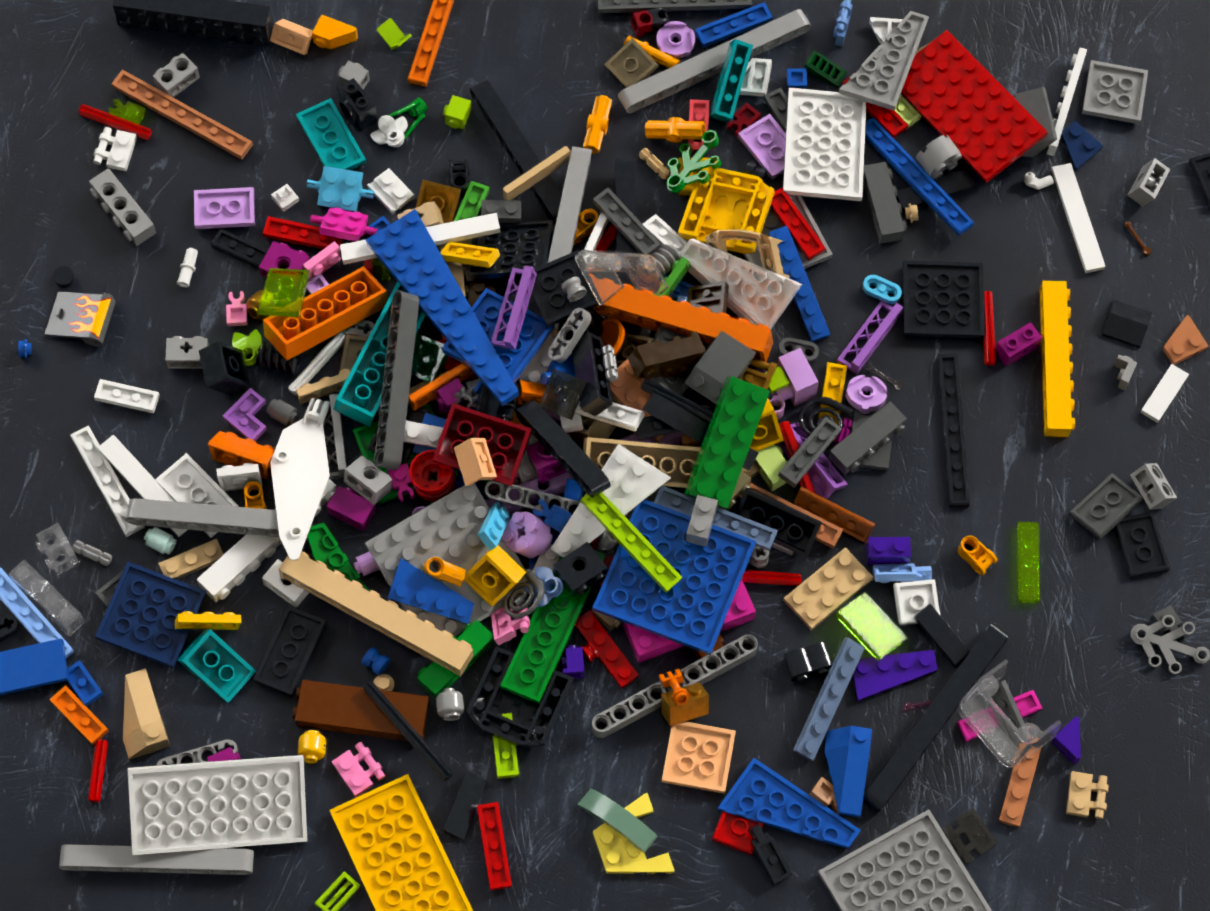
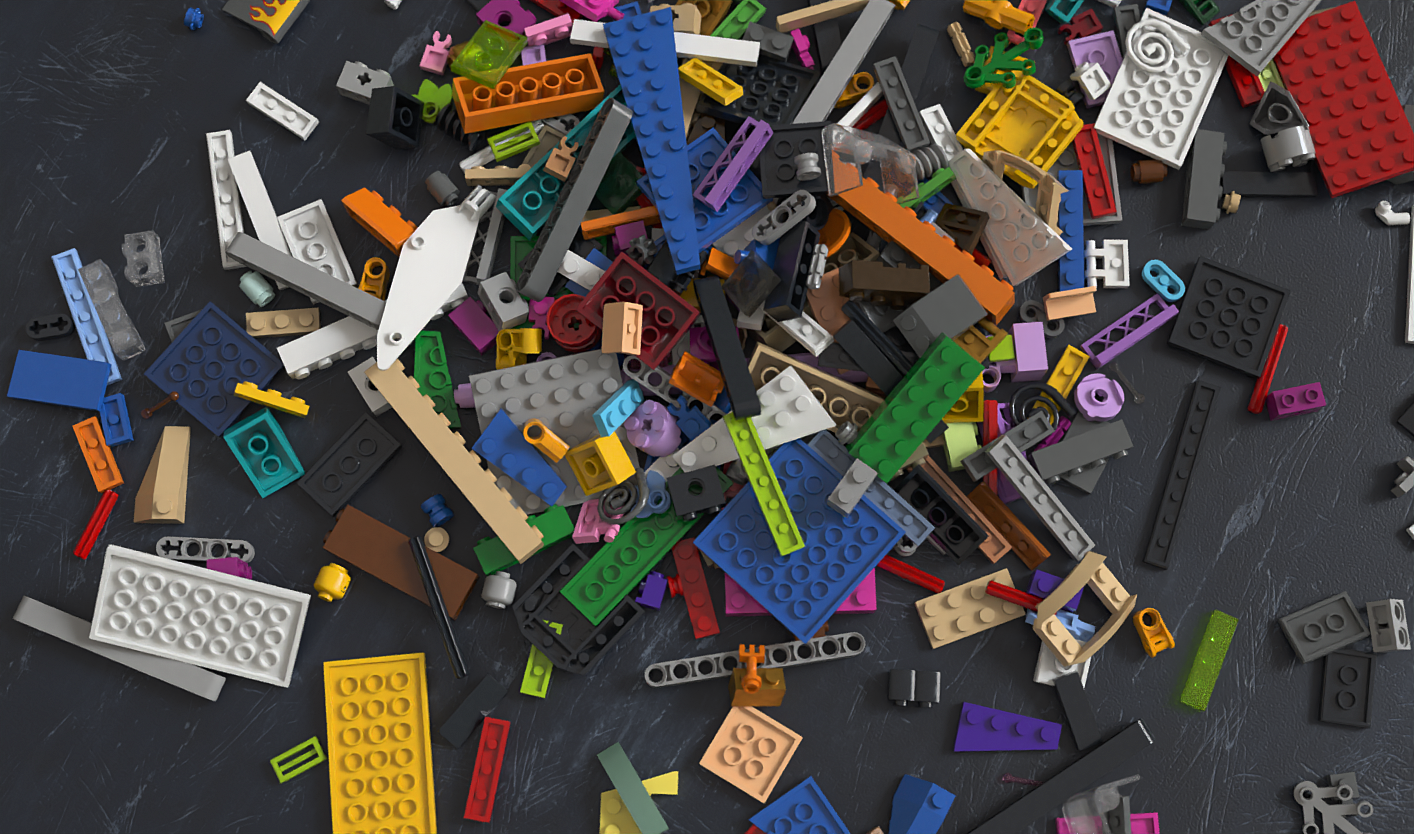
camera: 20 degrees right, 10 degrees up
(92, 553) = (180, 275): light grey axle -> none
(106, 669) = (146, 413): none -> reddish brown hinge
(237, 477) = (364, 248): white plate -> none
(242, 415) = (397, 176): medium lavender plate -> none
(314, 366) = (518, 148): none -> lime tile
(353, 773) = (366, 627): bright pink plate -> none
(374, 353) = (561, 160): none -> medium nougat plate
(396, 504) = (515, 345): none -> yellow piece
(529, 208) = (800, 47): none -> dark pink plate
(548, 481) = (697, 378): none -> orange hinge
(681, 481) = (847, 432): none -> light grey plate
(767, 155) = (1091, 79): none -> white bracket
(804, 116) = (1150, 48): none -> white piece
(816, 329) = (1069, 303): none -> light nougat panel
(828, 699) = (920, 739): sand blue plate -> none
(838, 210) = (1148, 171): none -> reddish brown brick
(839, 289) = (1115, 264): none -> white plate
(850, 482) = (1039, 498): none -> light grey plate
(865, 564) = (1013, 595): none -> red axle
(871, 626) = (1001, 672): clear neon green tile -> none
(917, 177) = (1253, 164): blue tile -> none
(919, 132) = (1277, 111): none -> flat silver slope
(929, 534) = (1106, 587): none -> tan wedge
(1055, 359) = (1332, 433): yellow brick -> none

